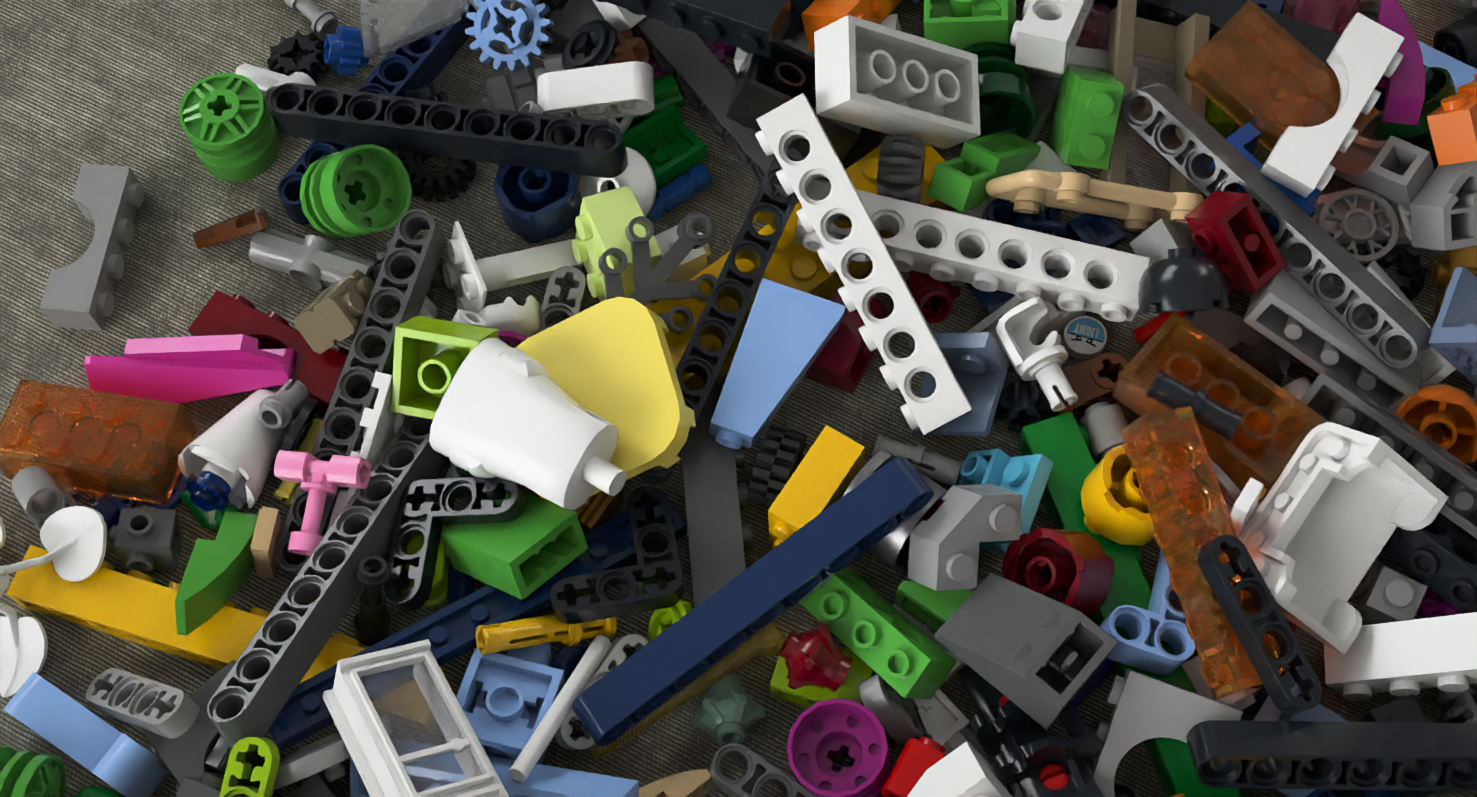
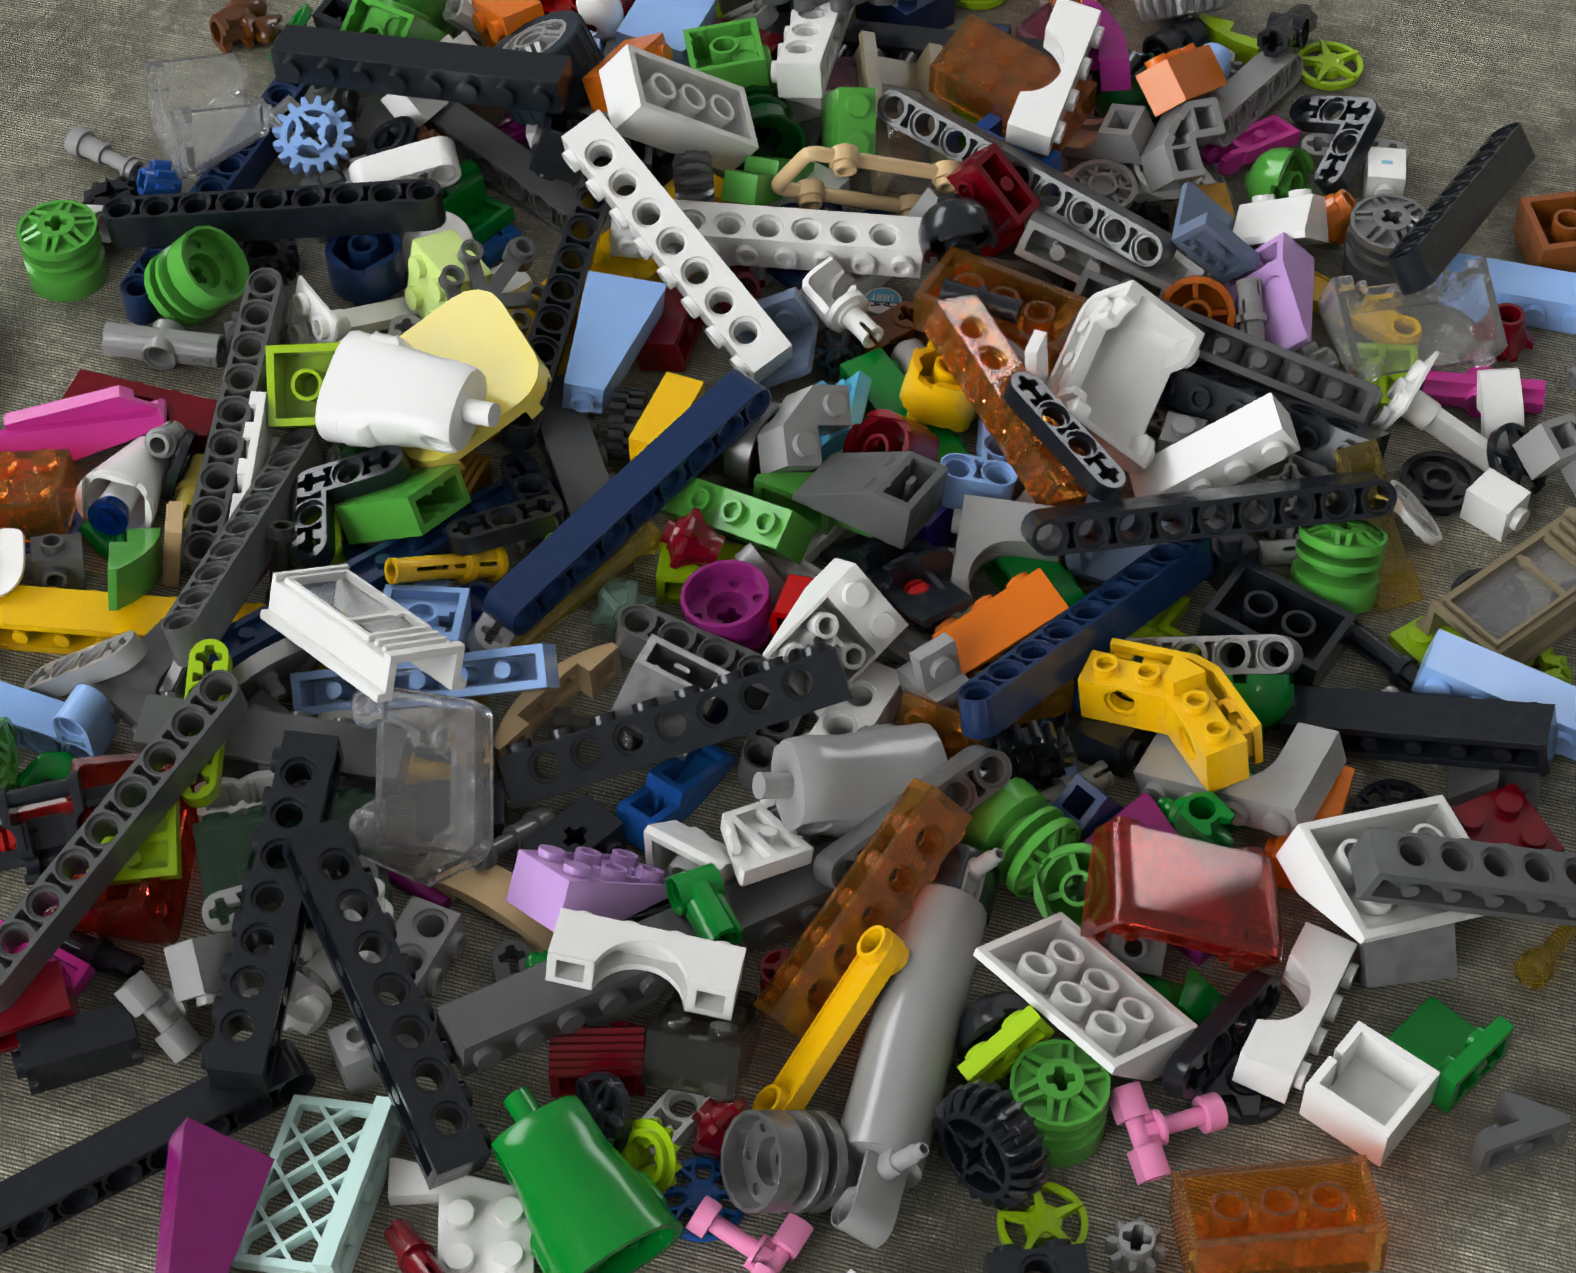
camera: 15 degrees left, 15 degrees down
(231, 228) = (82, 327): reddish brown tile -> none
(320, 480) = (216, 483): bright pink bar -> none
(335, 312) = (199, 364): dark tan brick -> none
(559, 709) = (474, 607): white bar -> none

